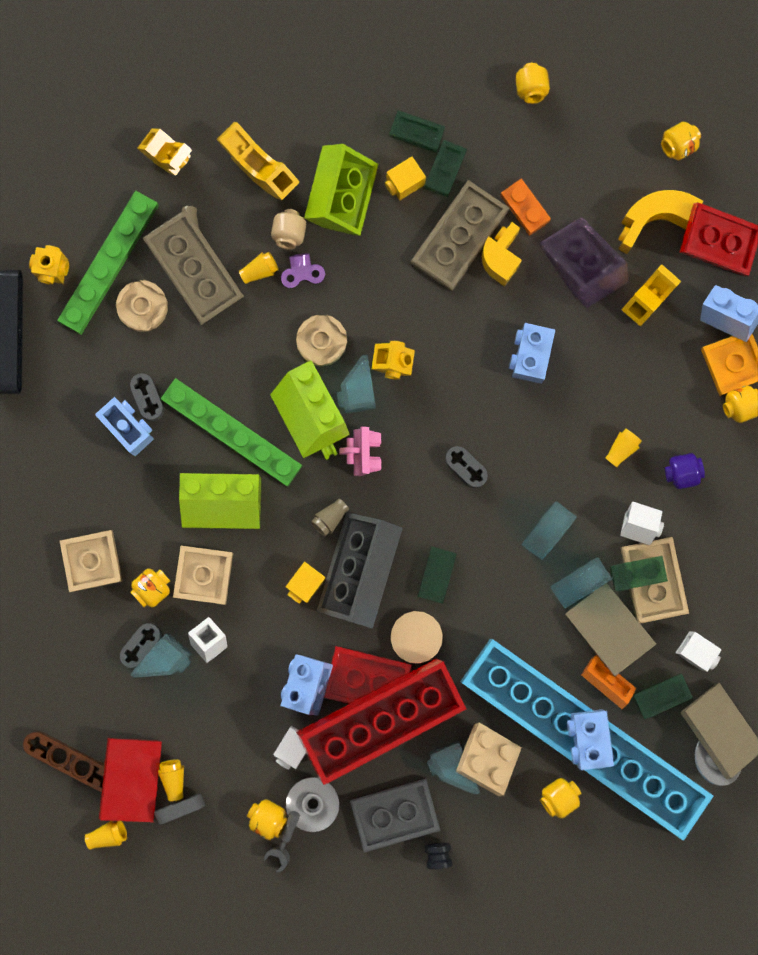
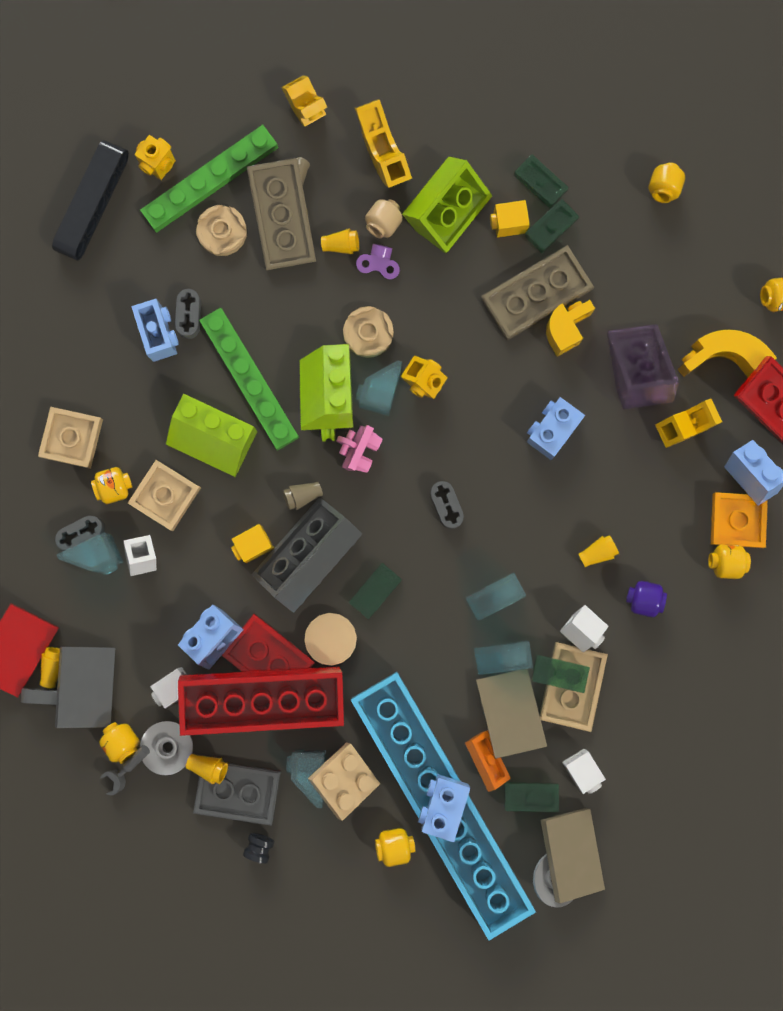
camera: 30 degrees right, 0 degrees up
(212, 783) = (85, 687): none -> dark grey tile
(359, 804) = (208, 768): none -> yellow cone
(525, 207) = (609, 293): orange plate -> none

